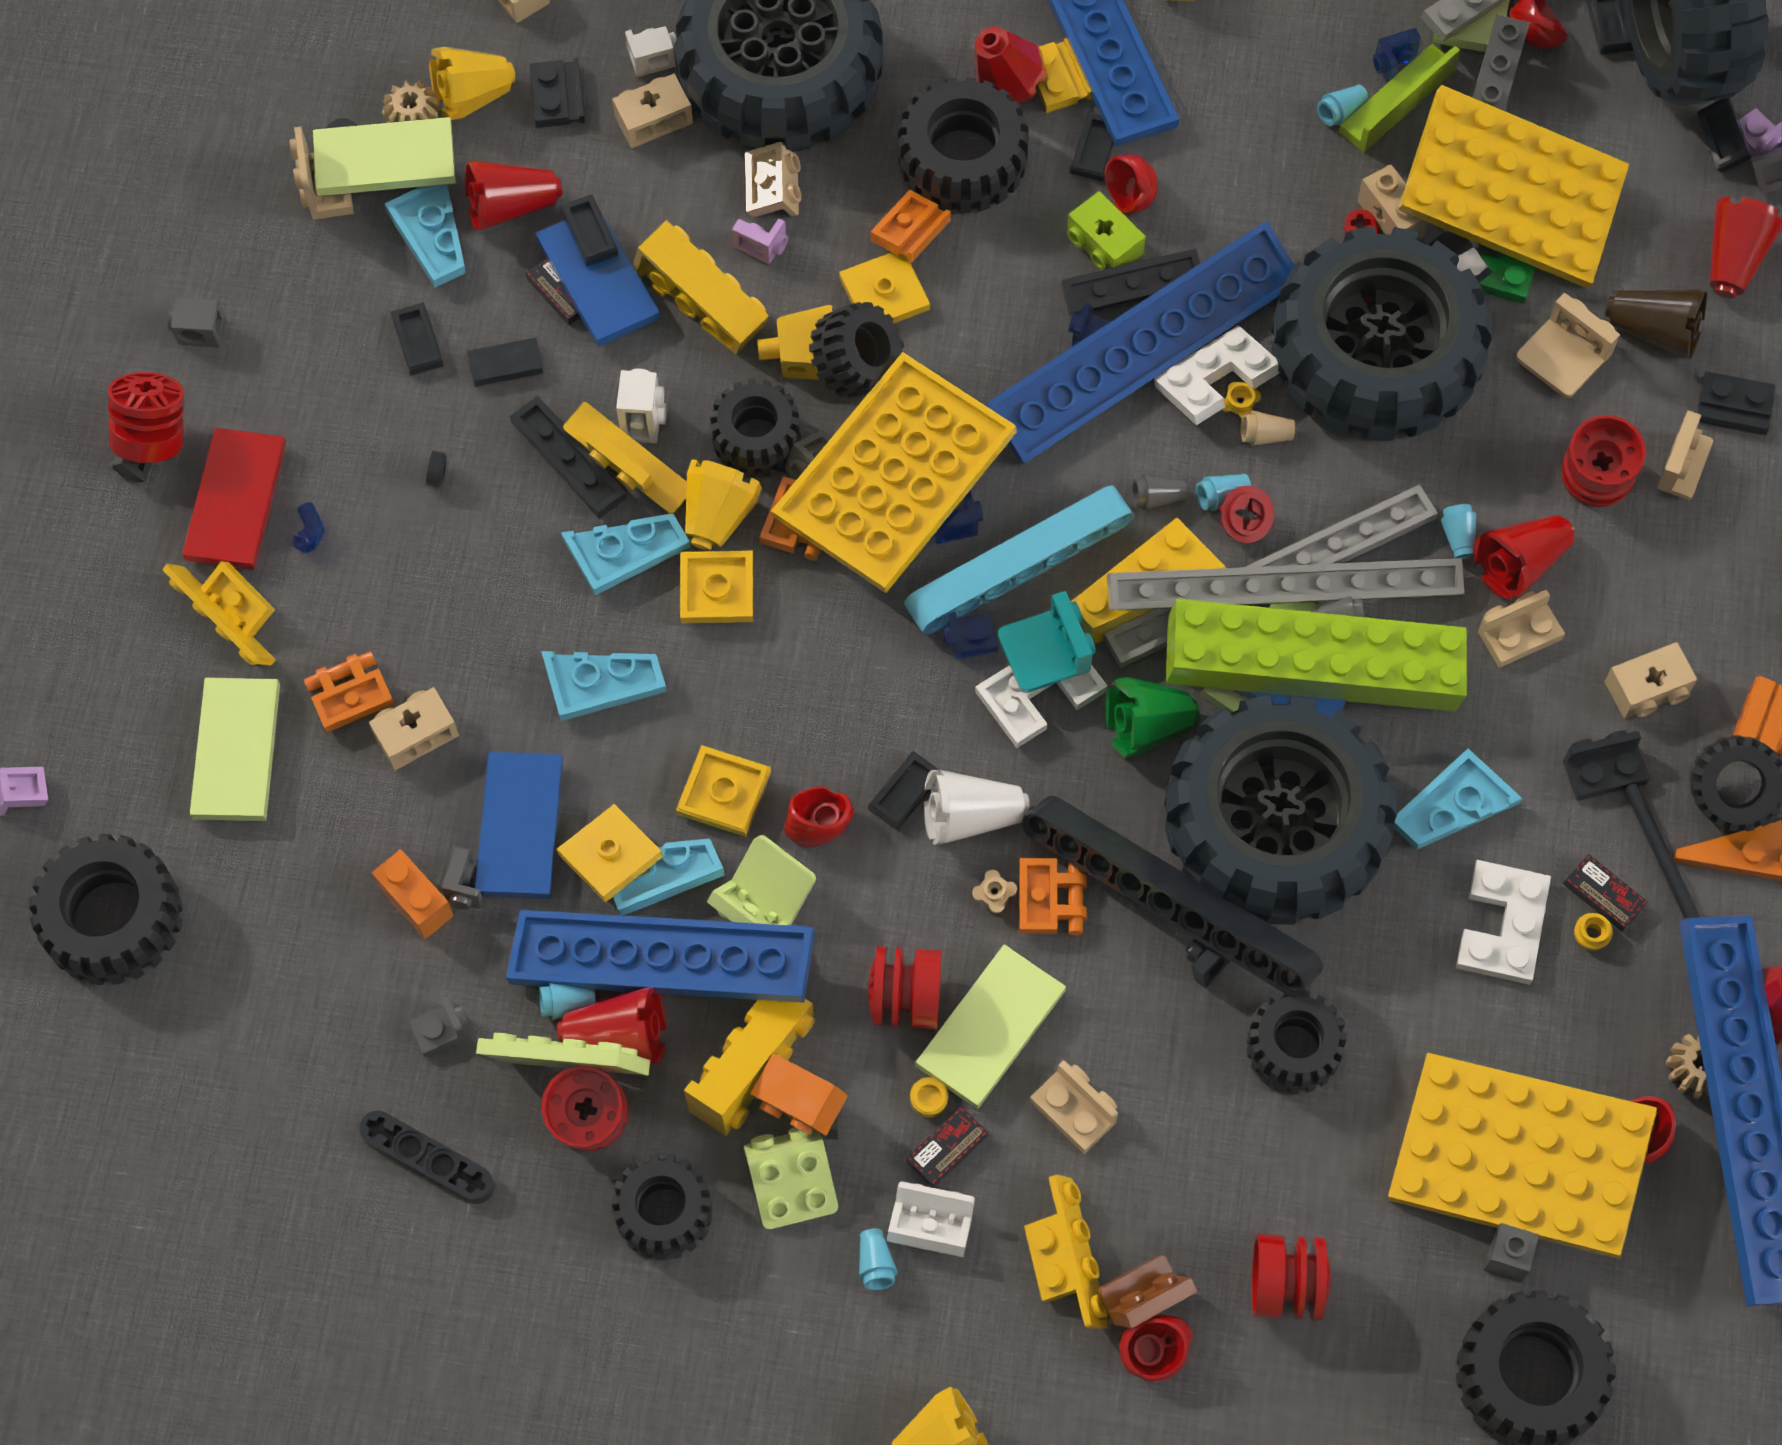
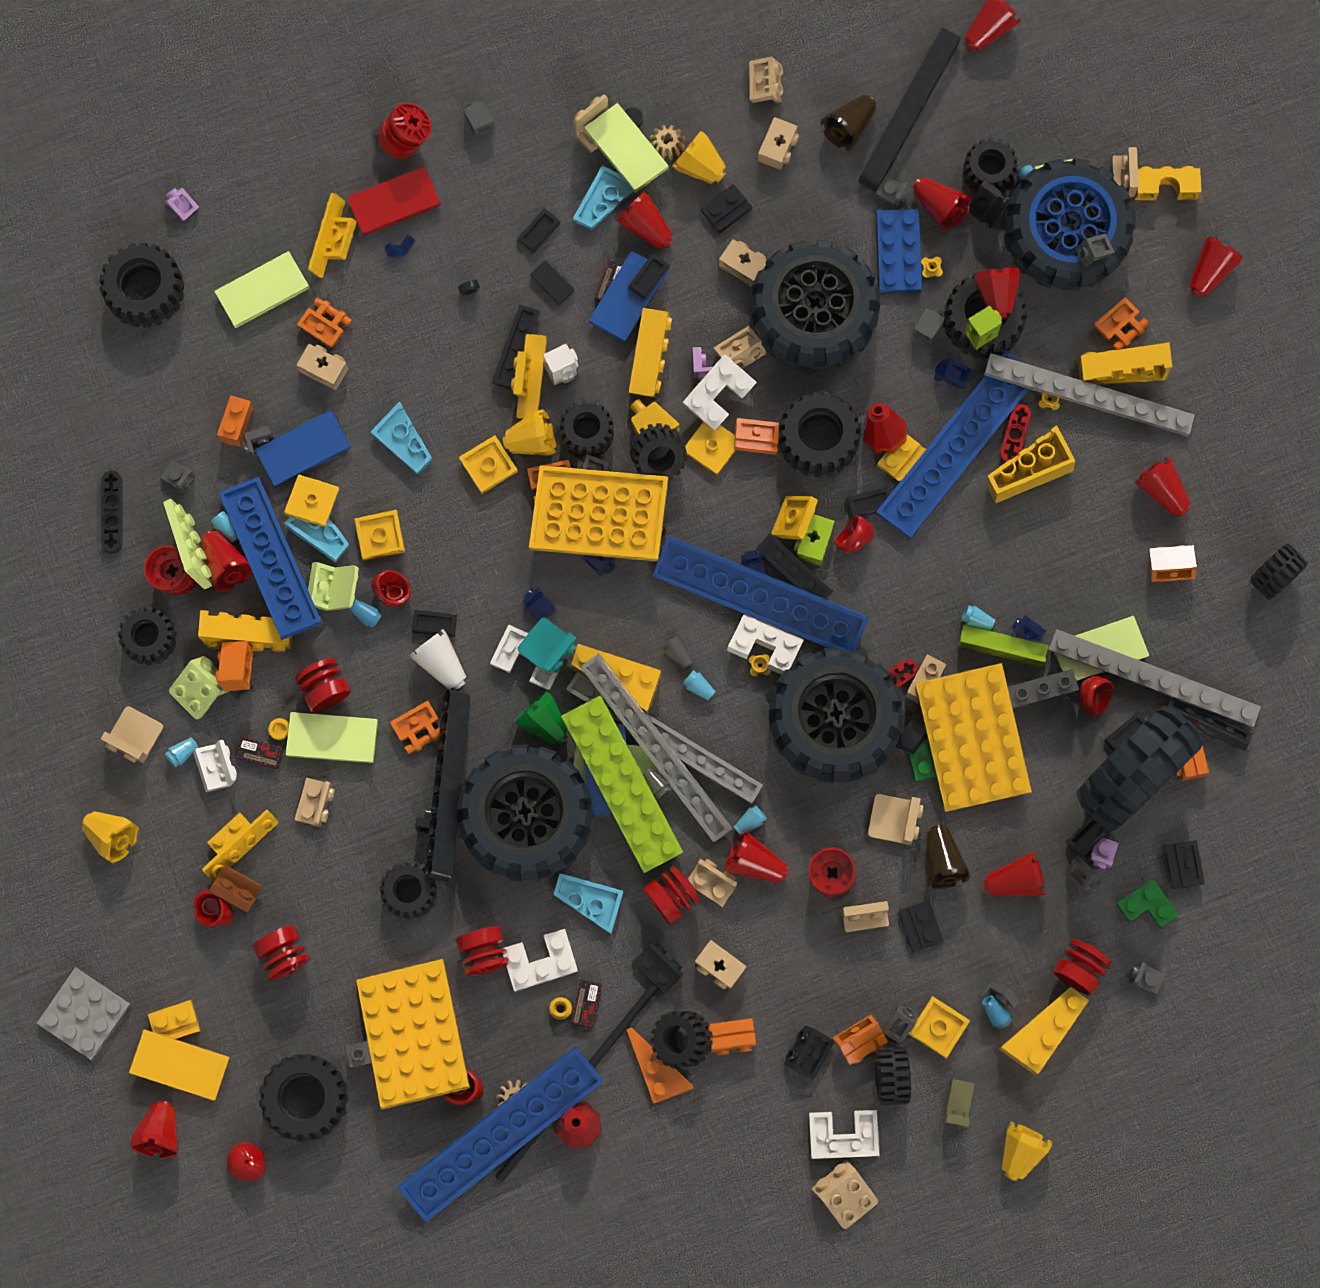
camera: 60 degrees right, 10 degrees up
(623, 551) = (480, 406): medium azure wing -> none
(651, 50) = (778, 238): white brick -> none
(798, 215) = (722, 374): none -> white plate
(804, 1317) = (133, 735): none -> tan bracket
(835, 871) = (365, 613): none -> dark azure cone
(994, 902) = (400, 703): tan plate -> none
(1019, 559) = (595, 605): medium azure beam -> none
(1061, 236) = (794, 517): none -> yellow plate
(1258, 504) = (688, 714): red gear -> none
(1264, 428) = (749, 688): tan cone -> none
(1453, 983) = (482, 951): none -> red wheel
(1516, 682) = (671, 895): none -> red wheel

